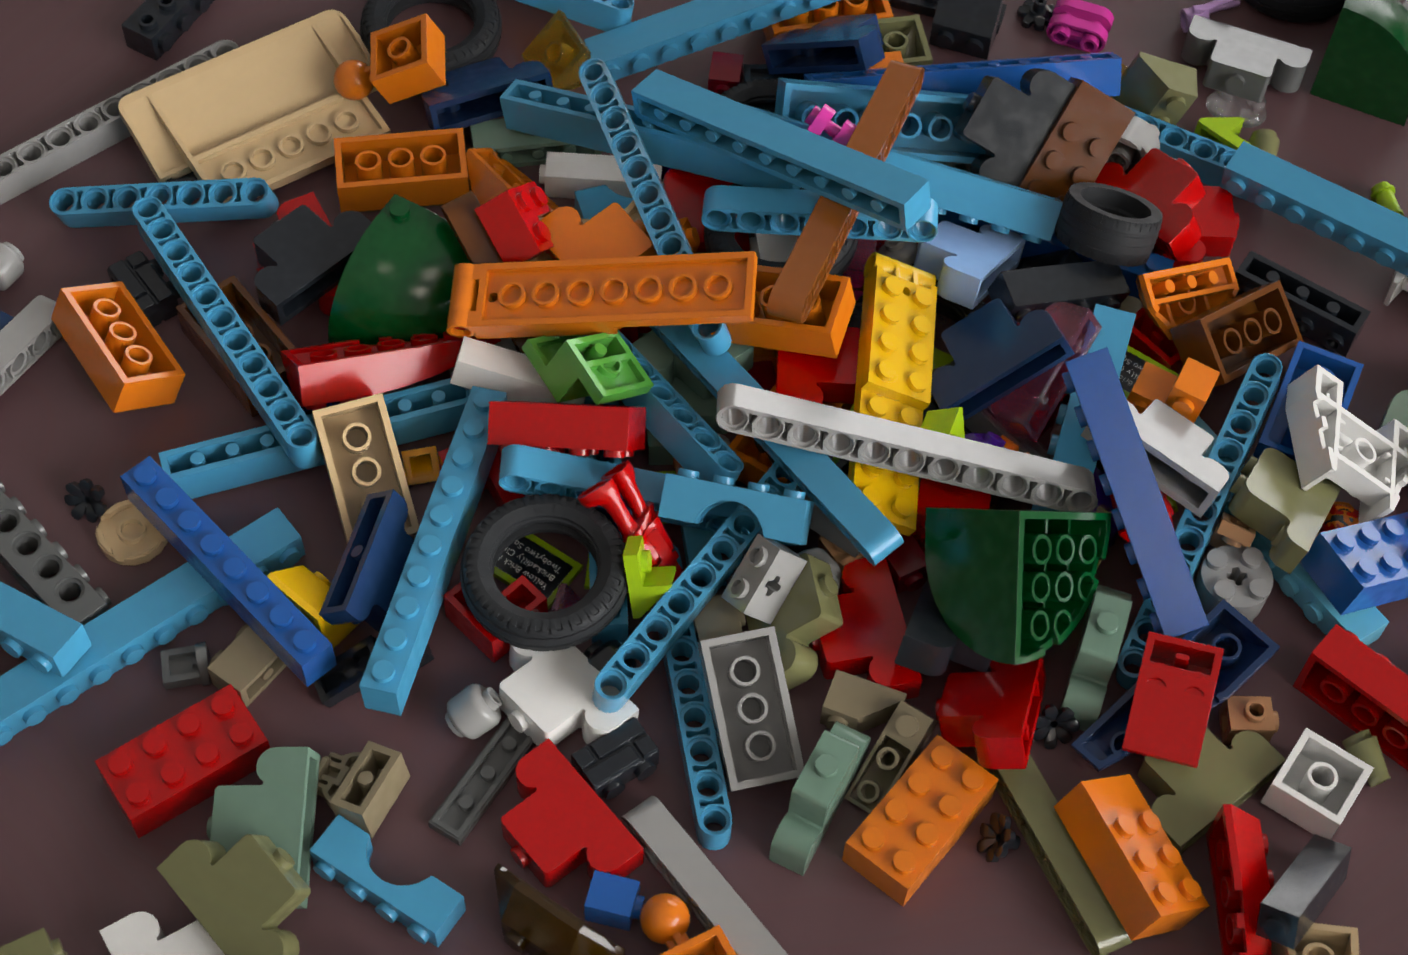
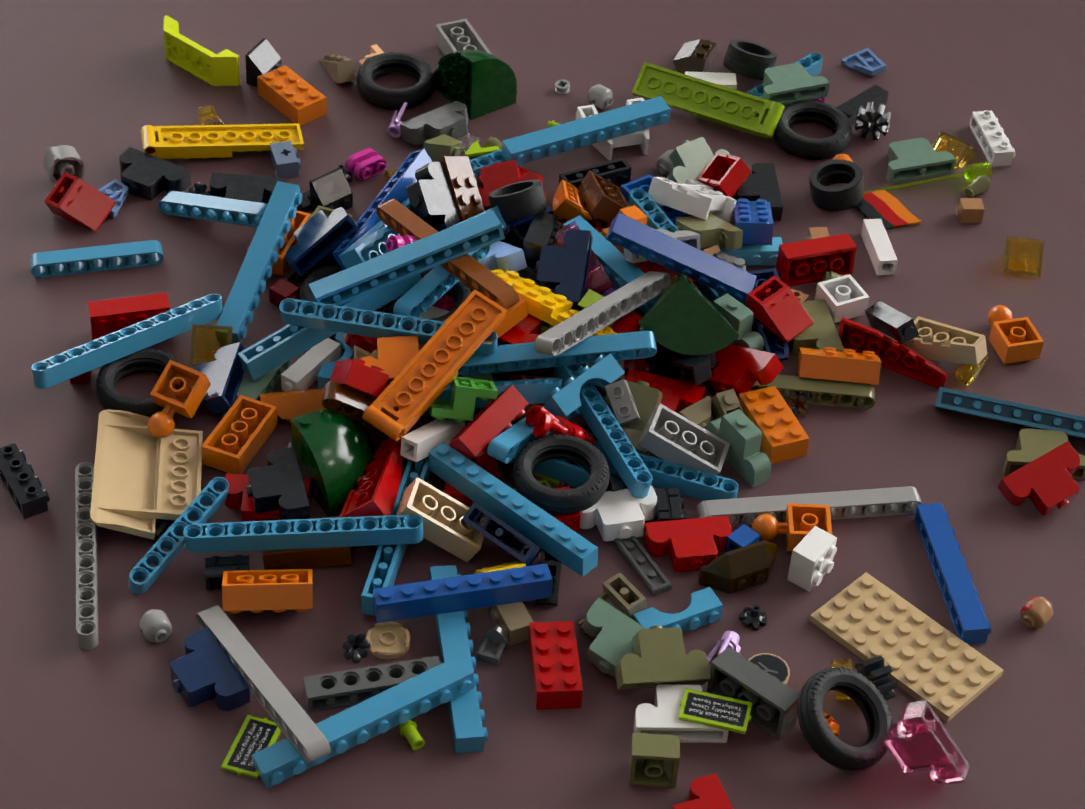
camera: 60 degrees left, 15 degrees down
(473, 711) = (608, 545): light grey head -> none
(644, 582) = (595, 436): lime slope -> none

